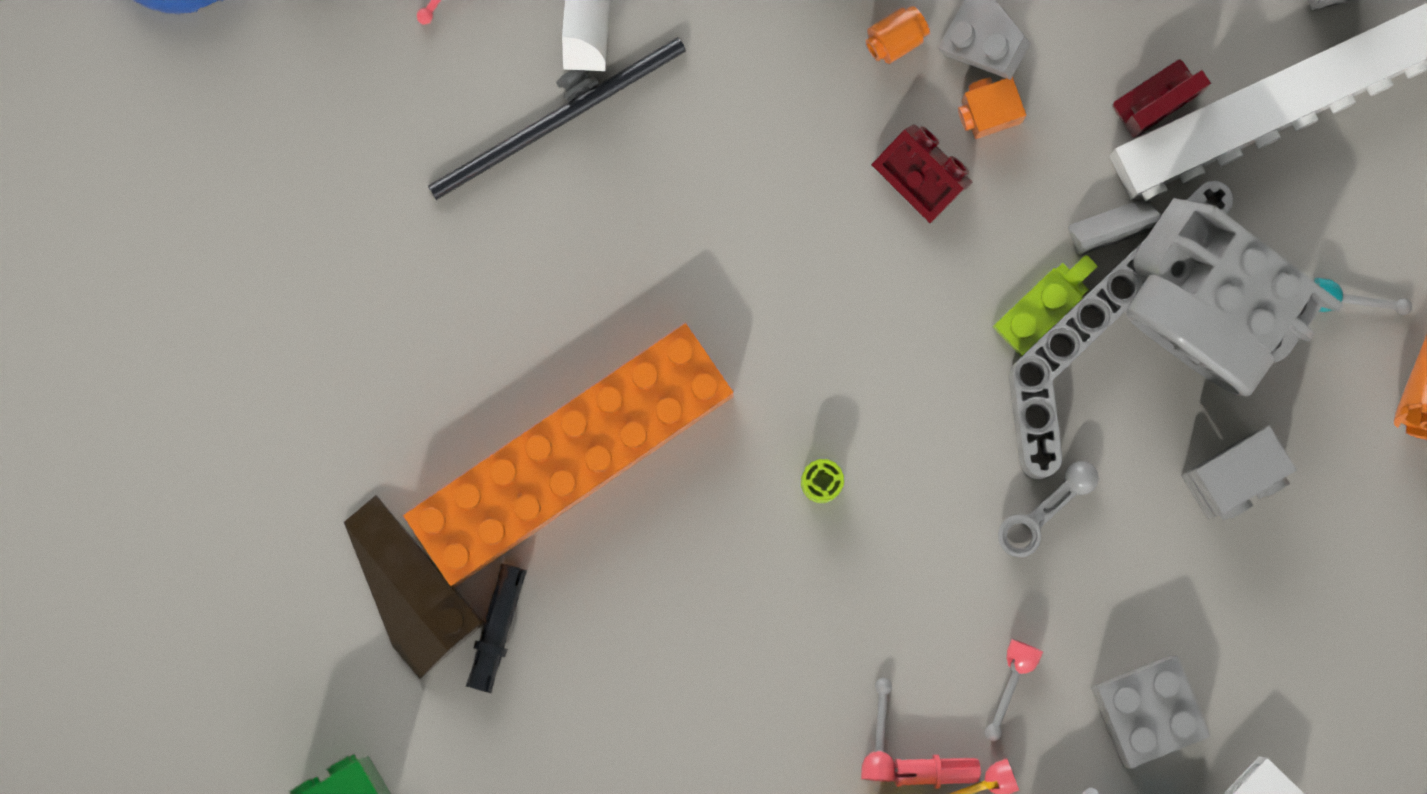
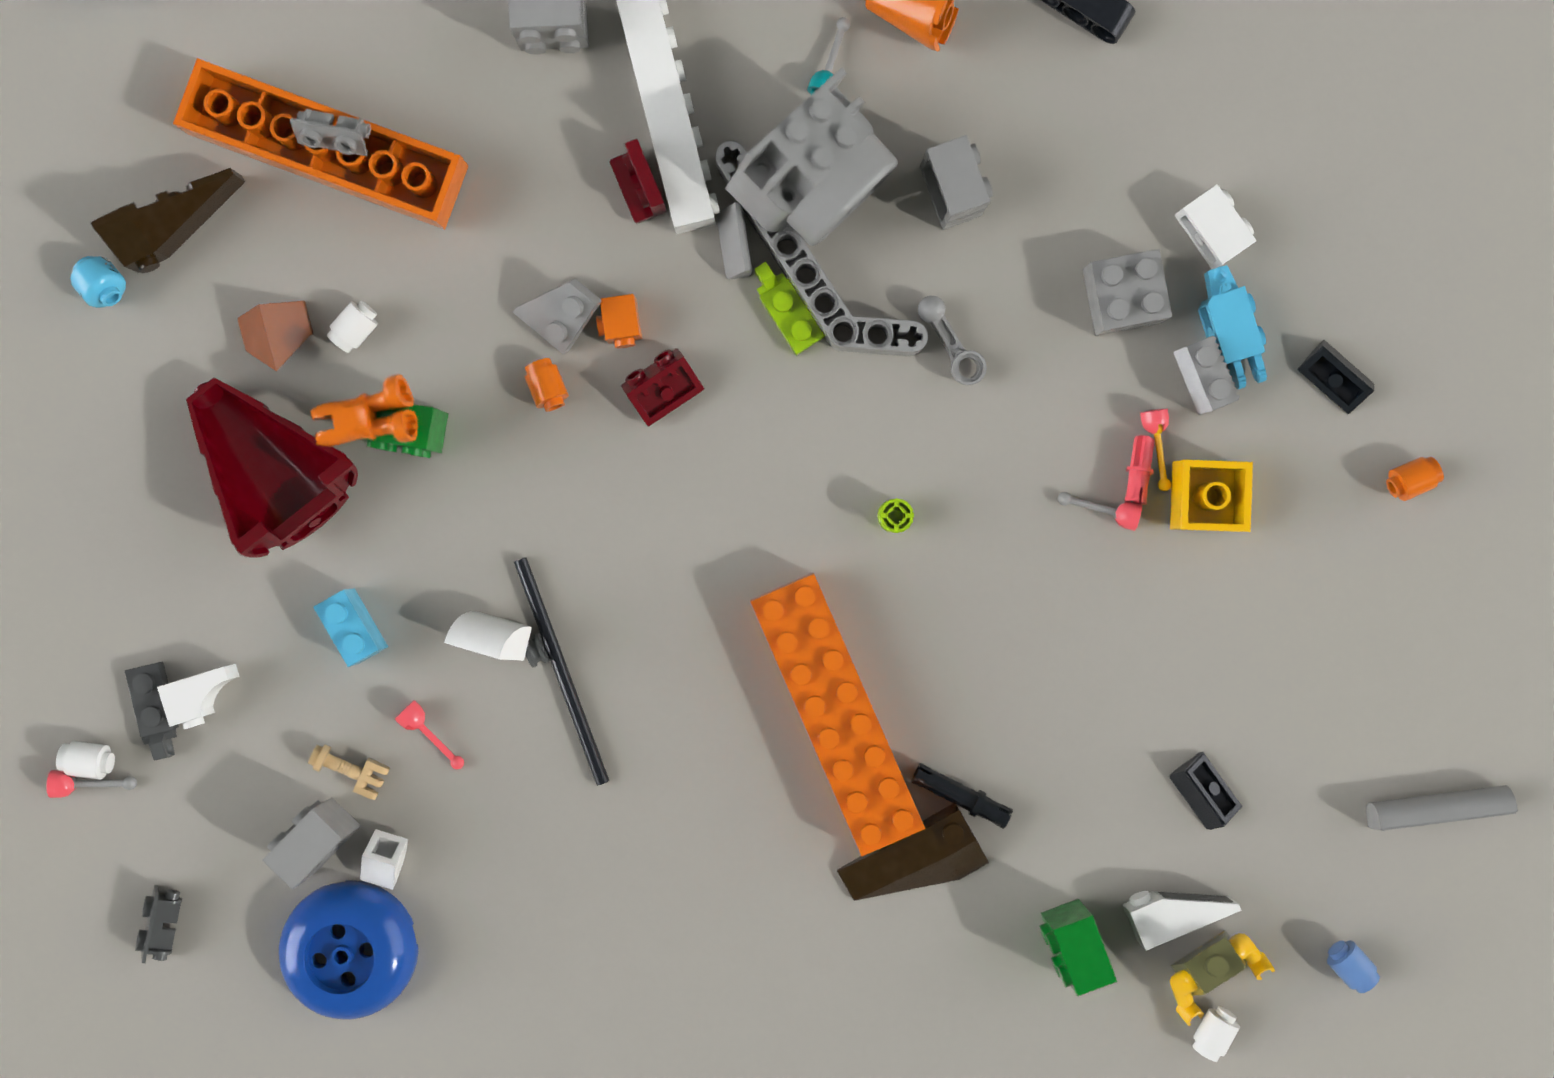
camera: 75 degrees left, 5 degrees up
(1022, 660) = (1065, 385): hinge -> none

